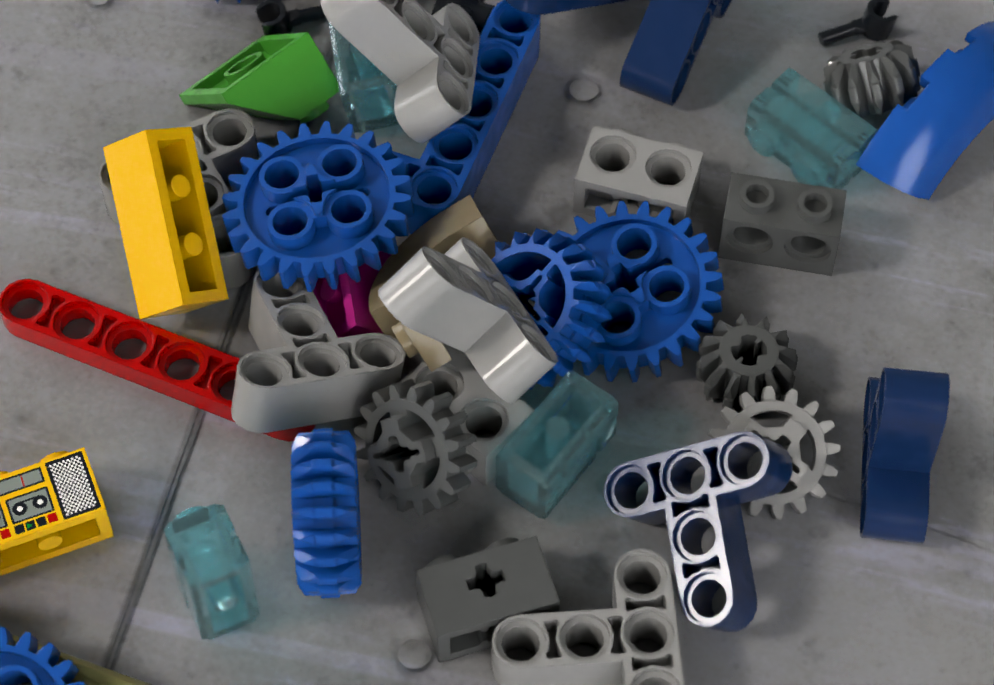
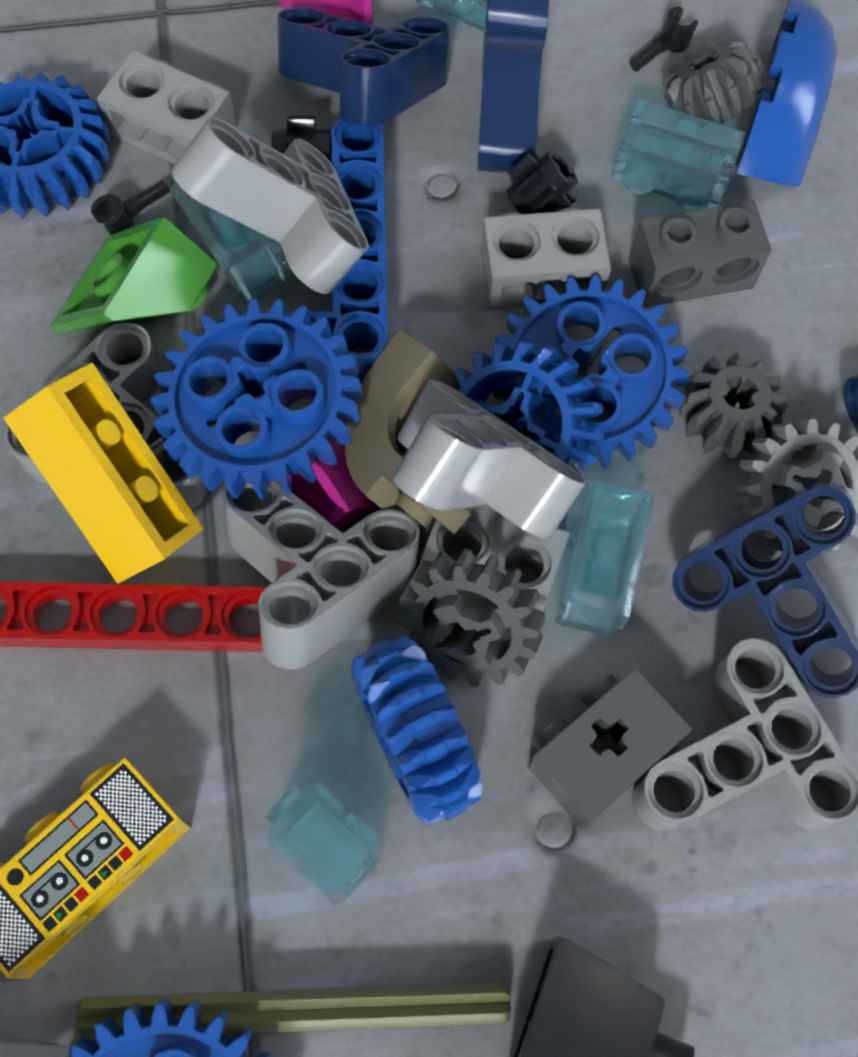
camera: 25 degrees left, 10 degrees up
(667, 114) = (542, 183): none -> black gear

